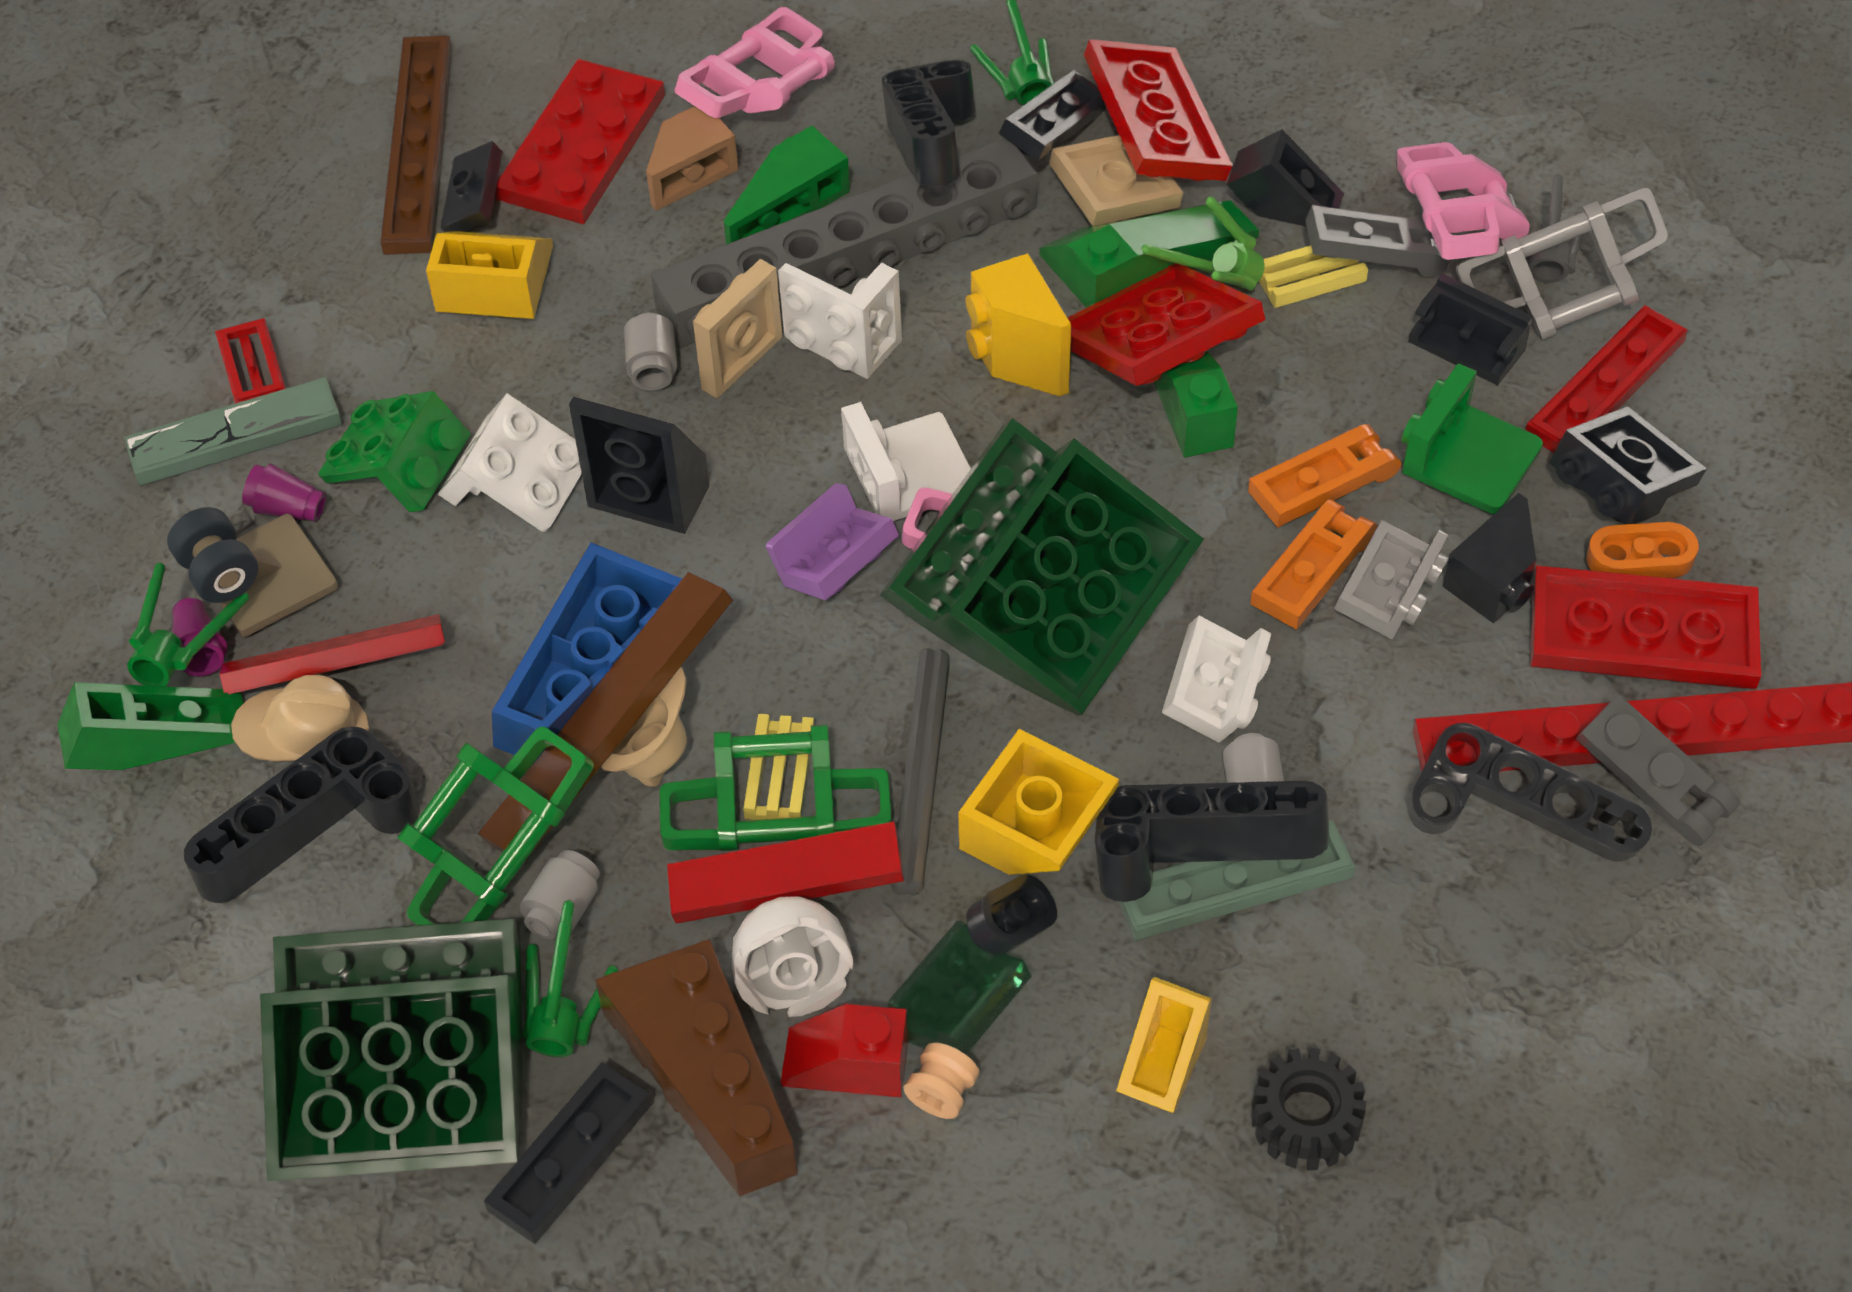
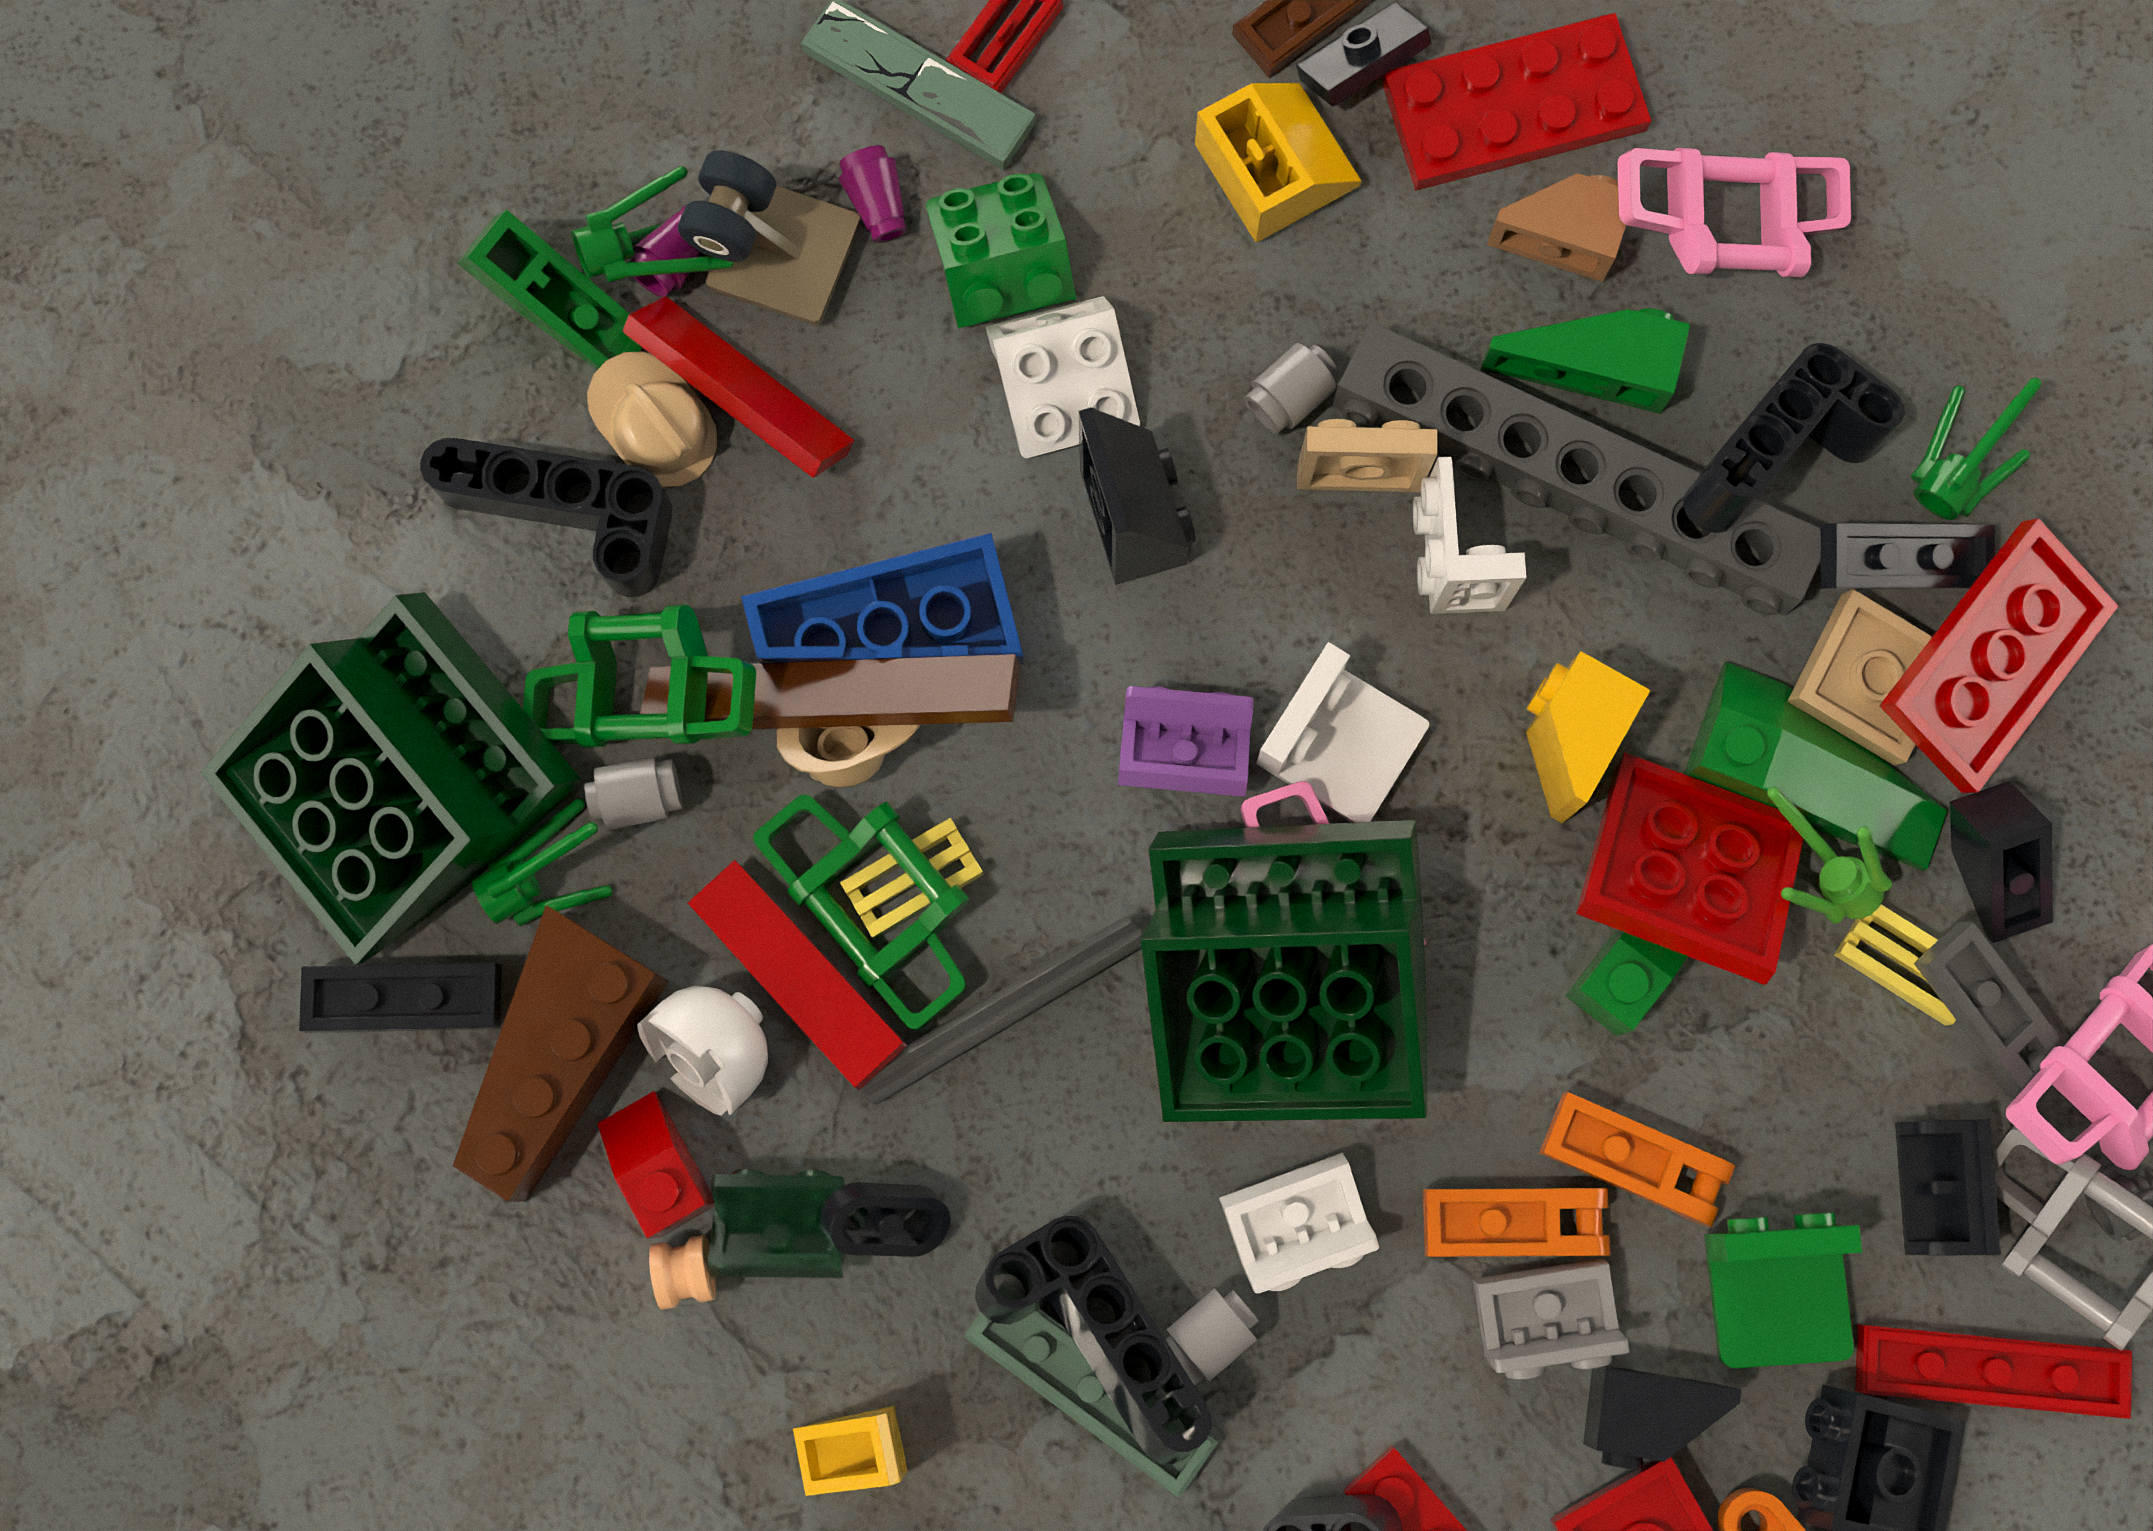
camera: 55 degrees right, 25 degrees up
(1032, 807) = (1009, 1166): yellow slope -> none

